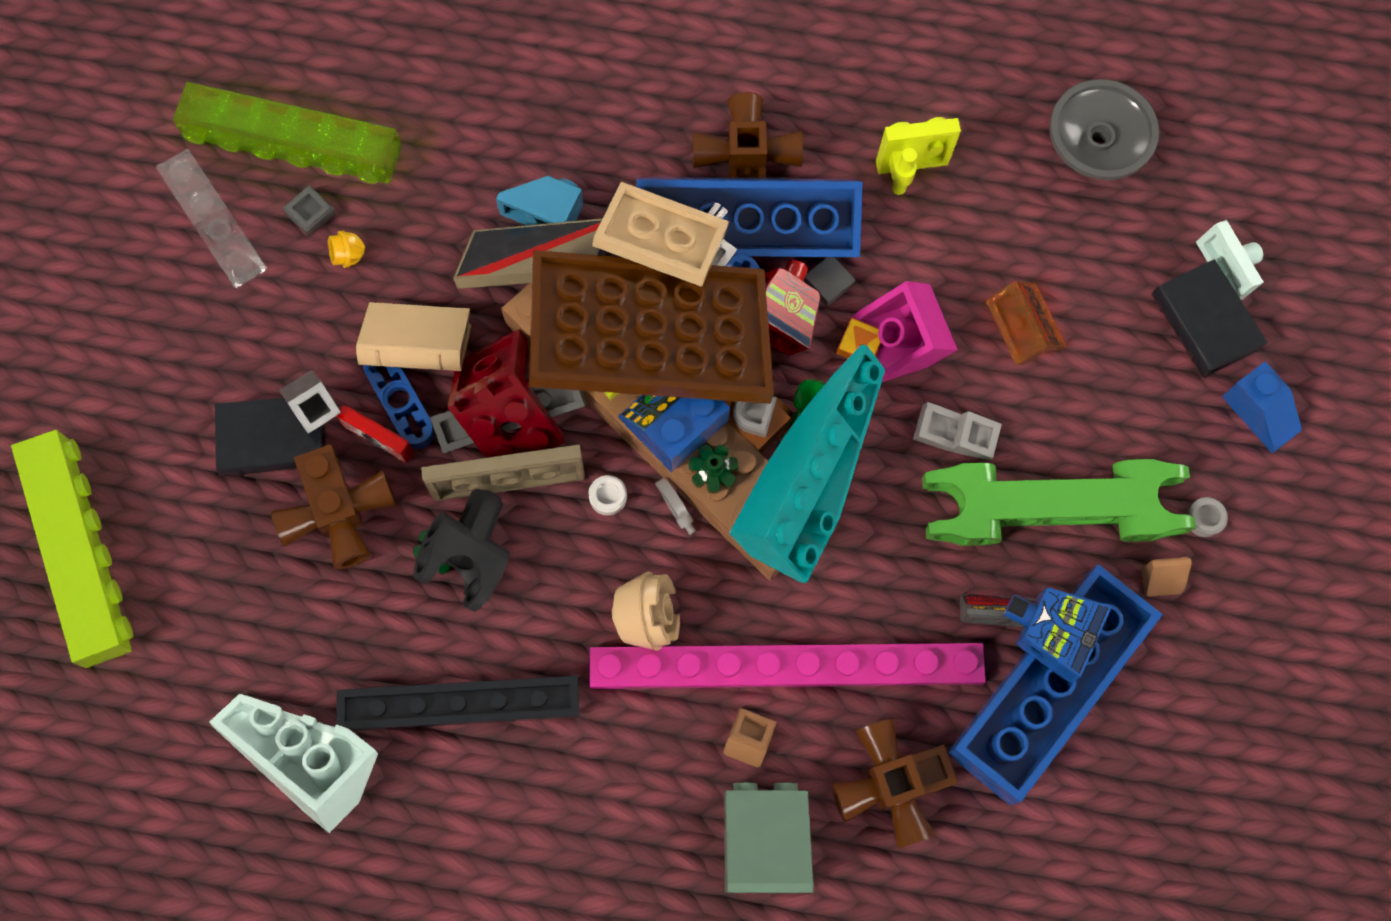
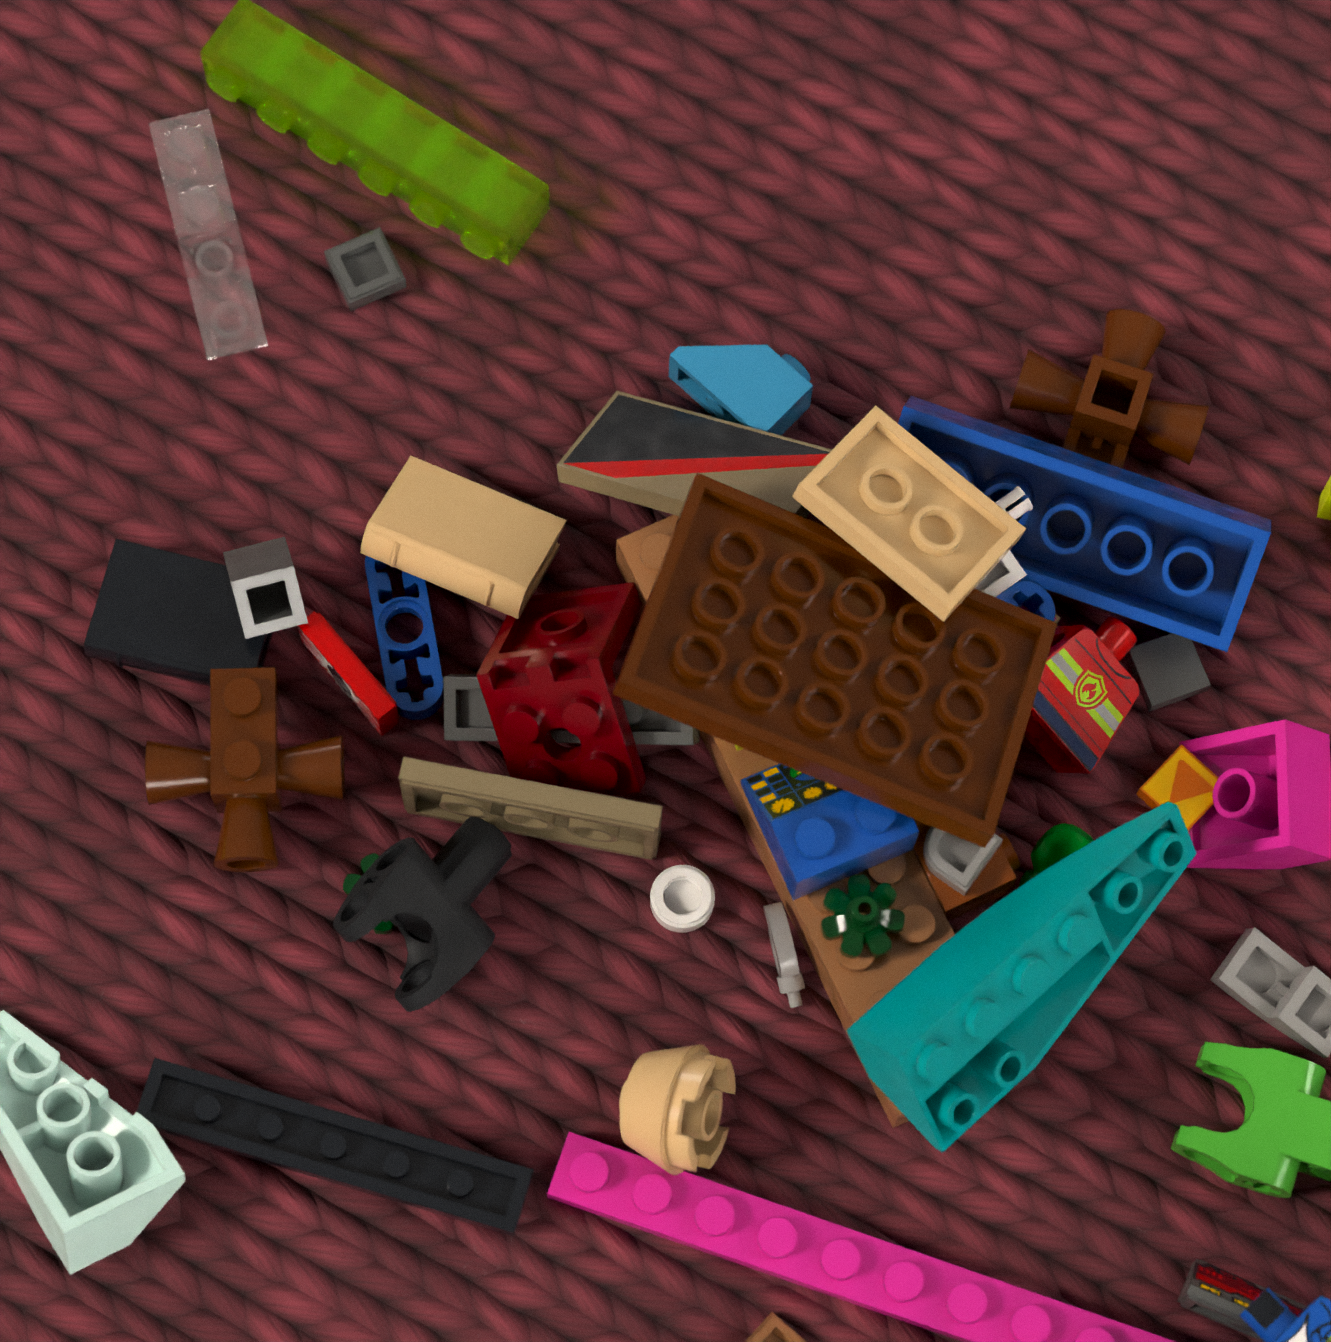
camera: 20 degrees right, 0 degrees up
(345, 249) = (401, 353): yellow plate -> none

